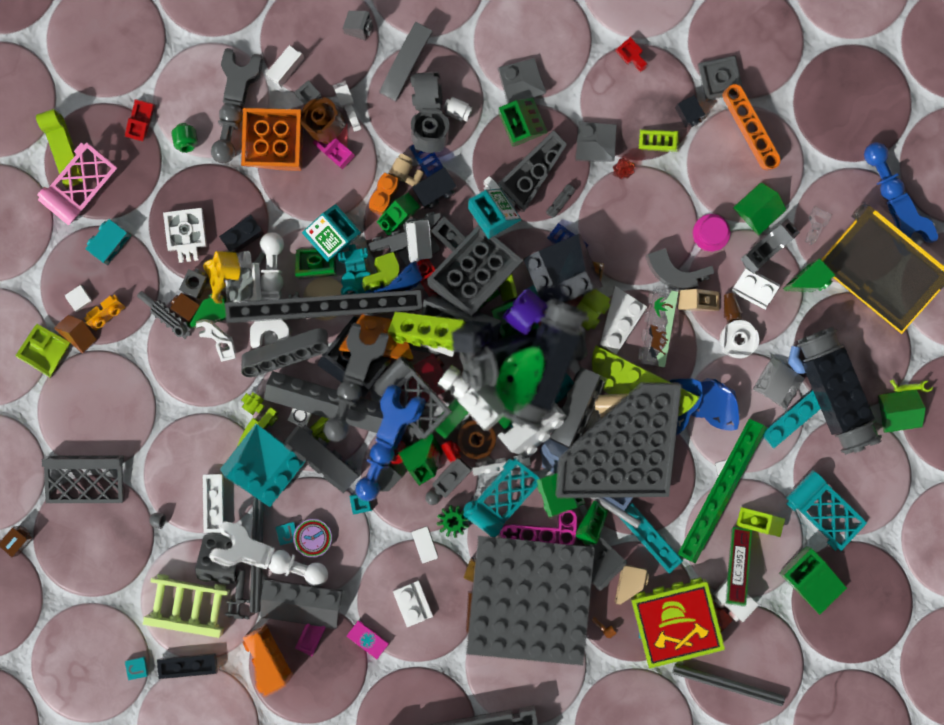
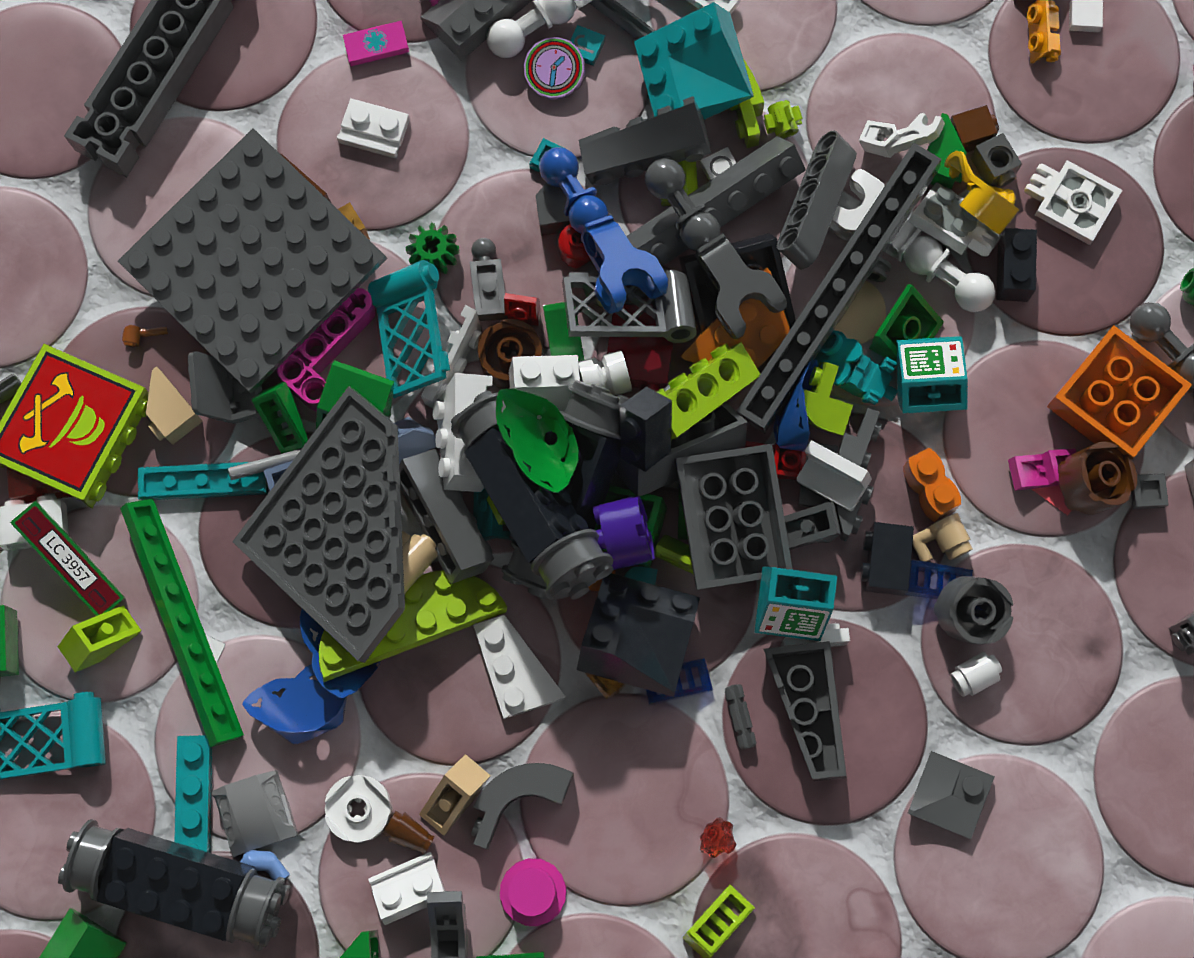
camera: 135 degrees right, 10 degrees down
(107, 241) = (1134, 97): teal brick -> none
(178, 326) = (953, 103): dark grey piece -> none
(346, 102) = (1102, 533): white piece -> none
(398, 213) = (891, 485): green slope -> none
(405, 61) = (1098, 655): dark grey slope -> none
(422, 459) = (540, 263): green slope -> none
(424, 545) = (433, 197): white sticker -> none
(427, 91) = (1033, 648): dark grey brick -> none
(522, 121) = (892, 749): green slope -> none
(593, 305) = (561, 636): lime brick -> none
(595, 142) = (785, 831): dark grey plate -> none
(658, 328) = (461, 709): brick -> none

